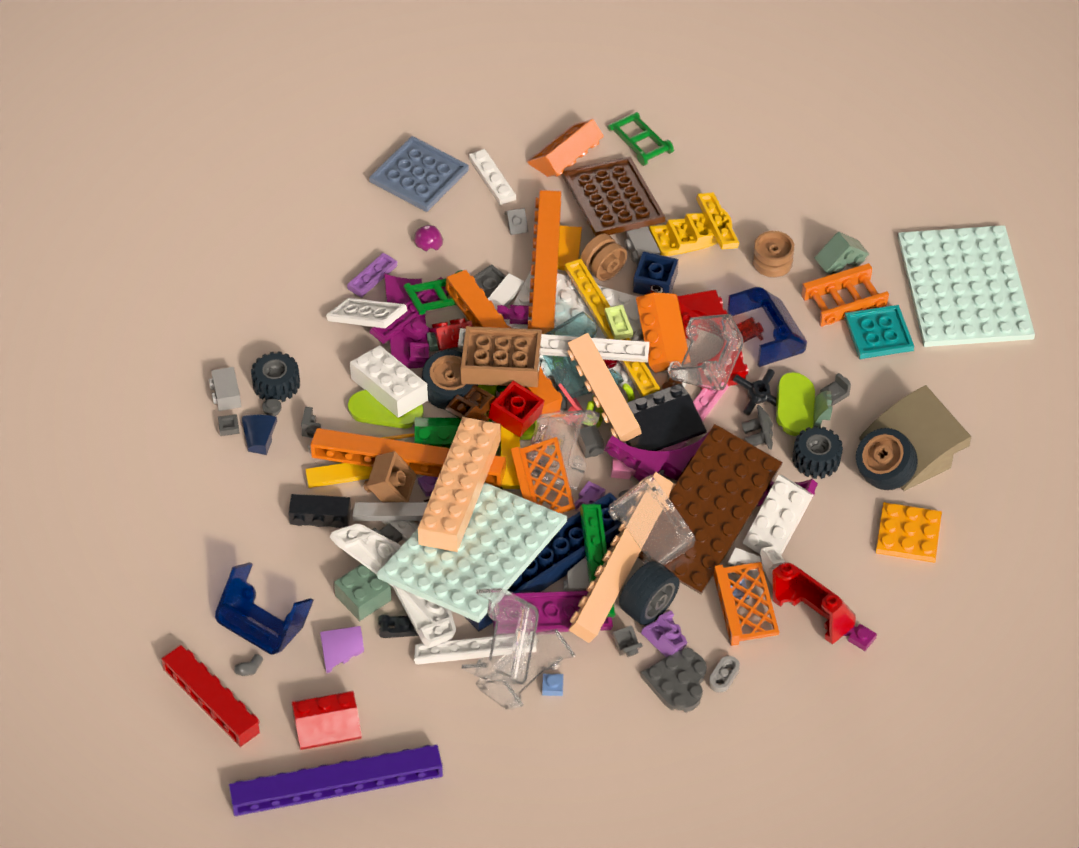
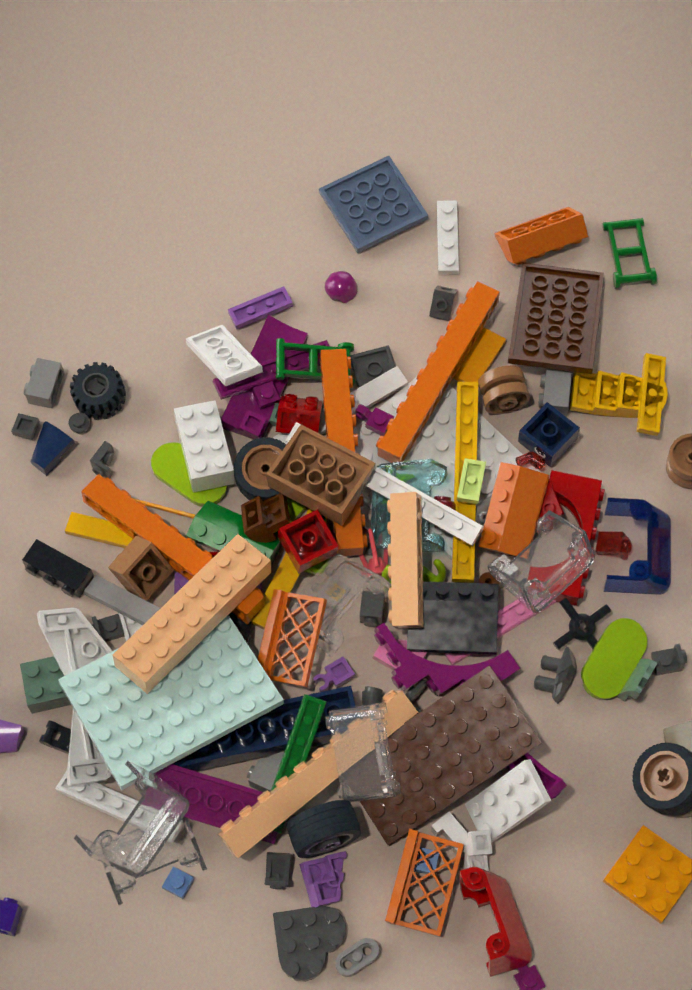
camera: 30 degrees right, 15 degrees up
(817, 452) = (603, 731): black wheel -> none

